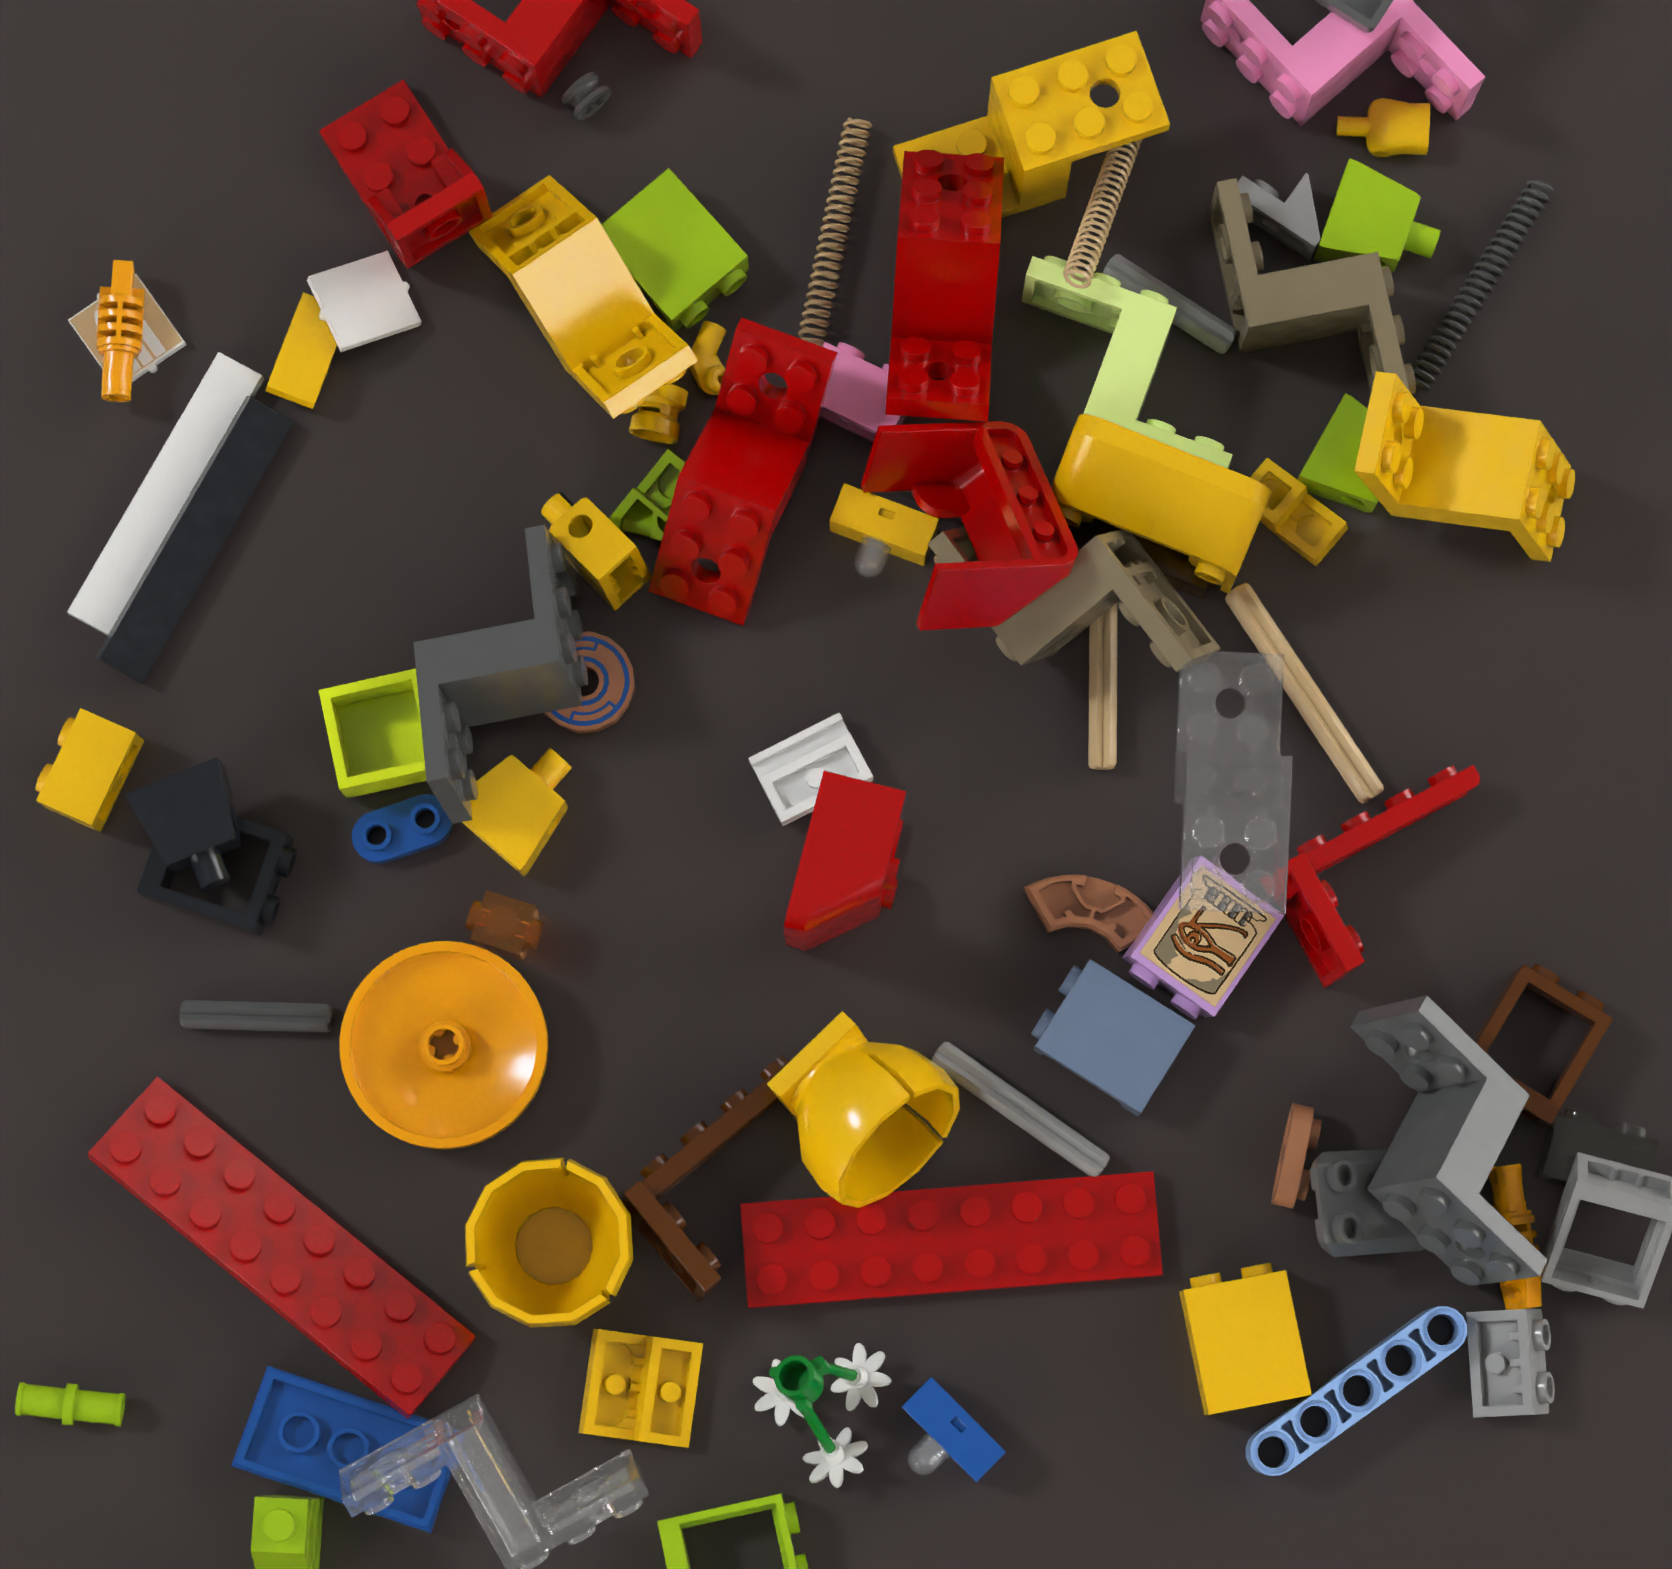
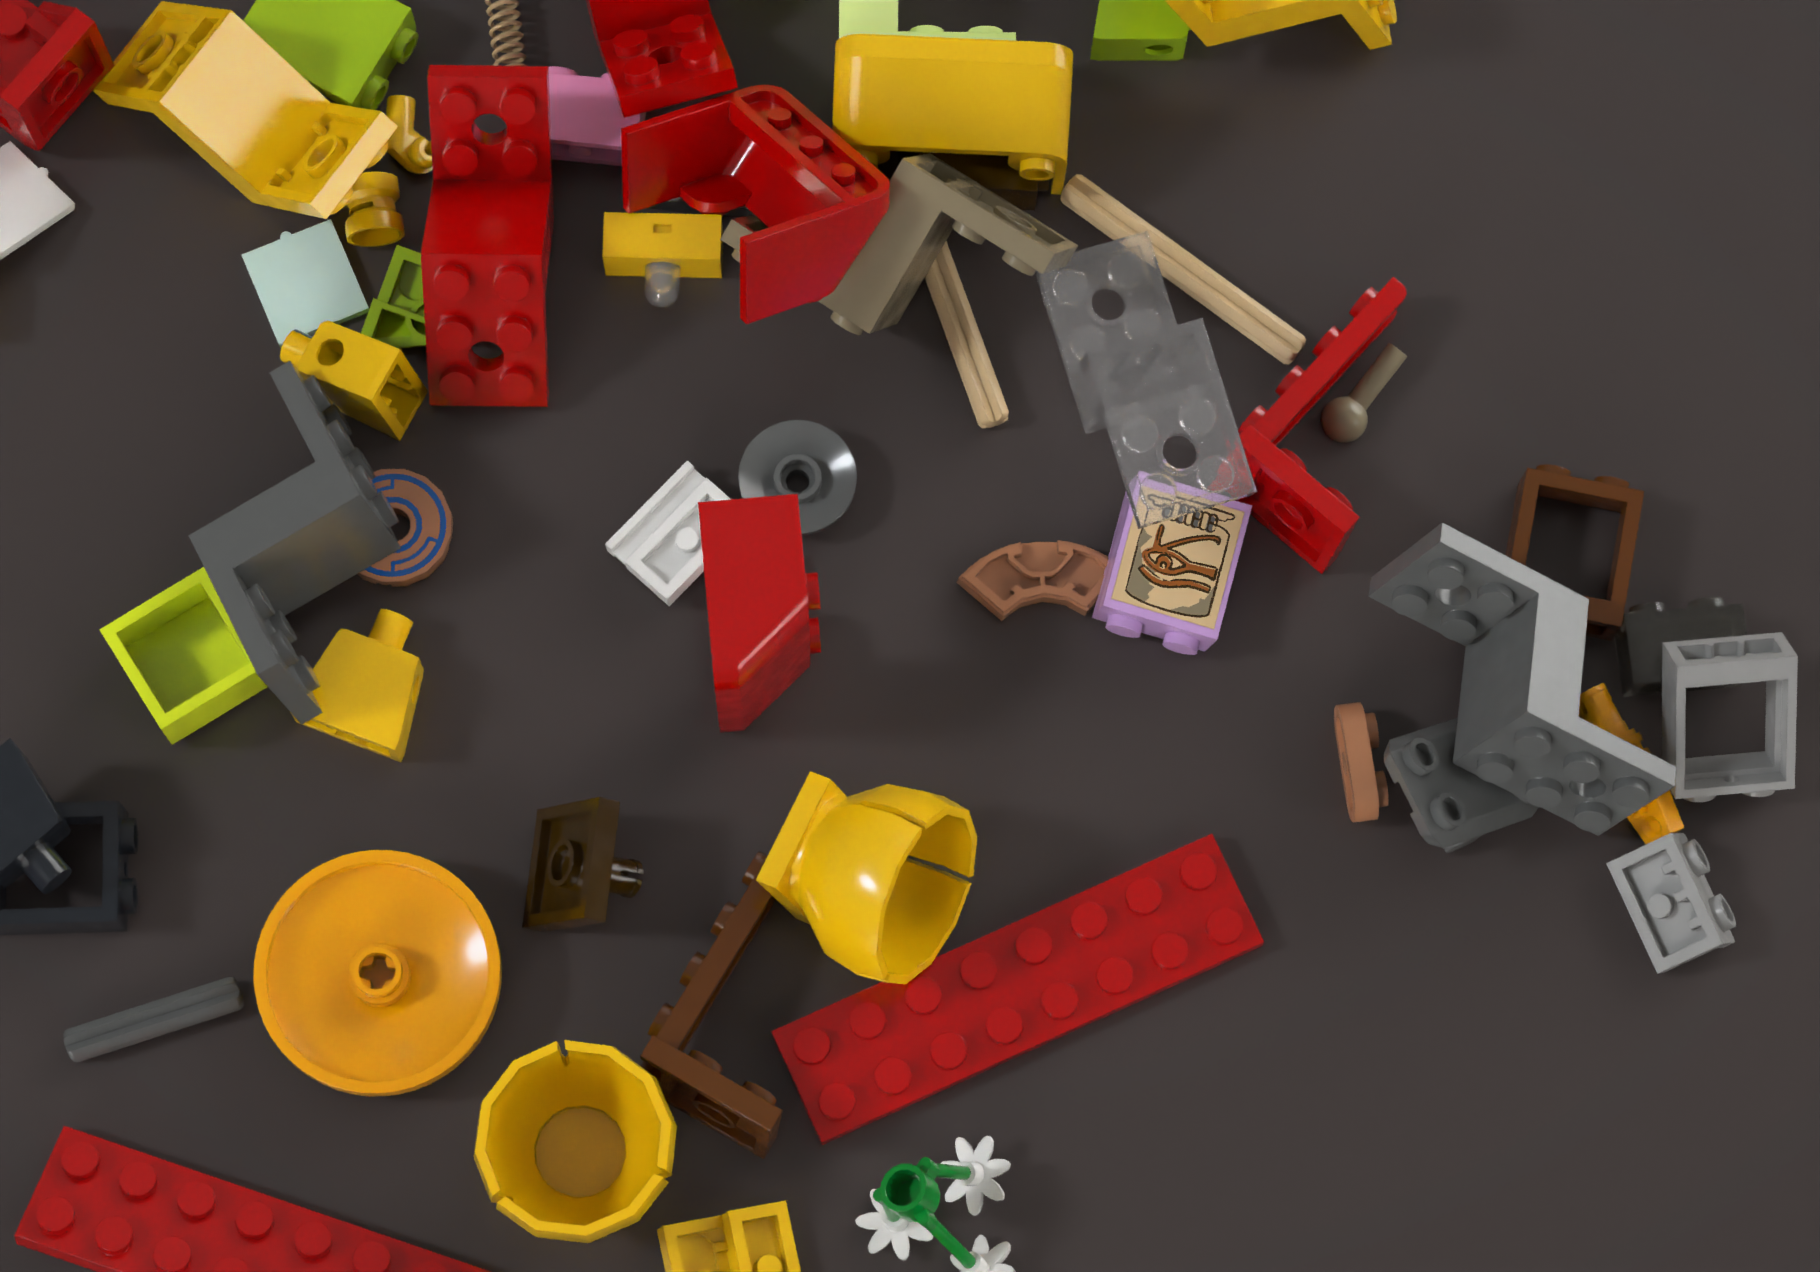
camera: 25 degrees left, 5 degrees down
(401, 829) = (250, 760): blue plate -> none
(504, 925) = (399, 817): clear orange brick -> none
(584, 453) = (305, 281): none -> light aqua piece
(631, 1016) = (576, 866): none -> dark brown tile
(928, 732) = (803, 450): none -> dark grey dish
(948, 1434) = (1095, 1199): blue piece -> none
(1021, 1110) = (1048, 820): light grey axle -> none
(1112, 1035) = (1113, 701): sand blue panel -> none
(1244, 1339) = (1379, 979): yellow brick -> none
(1298, 516) = (1111, 89): yellow slope -> none
(1380, 1382) = (1541, 970): light blue beam -> none
(1394, 864) = (1346, 416): none -> dark tan bar

